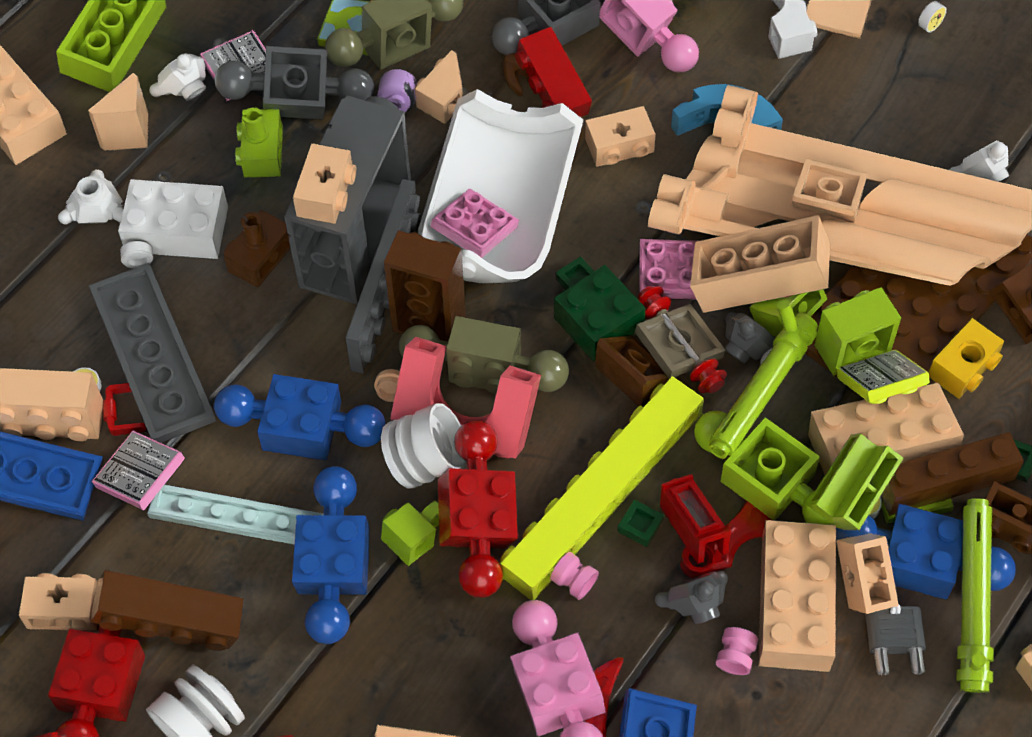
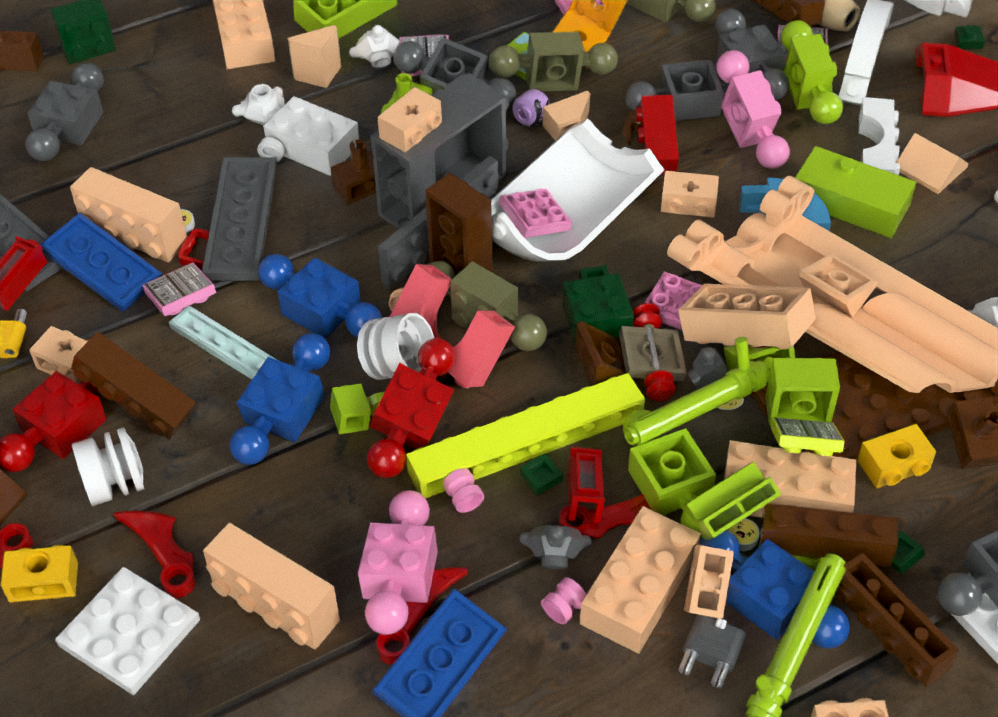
camera: 25 degrees right, 10 degrees down
(786, 68) = (858, 191): none -> lime brick

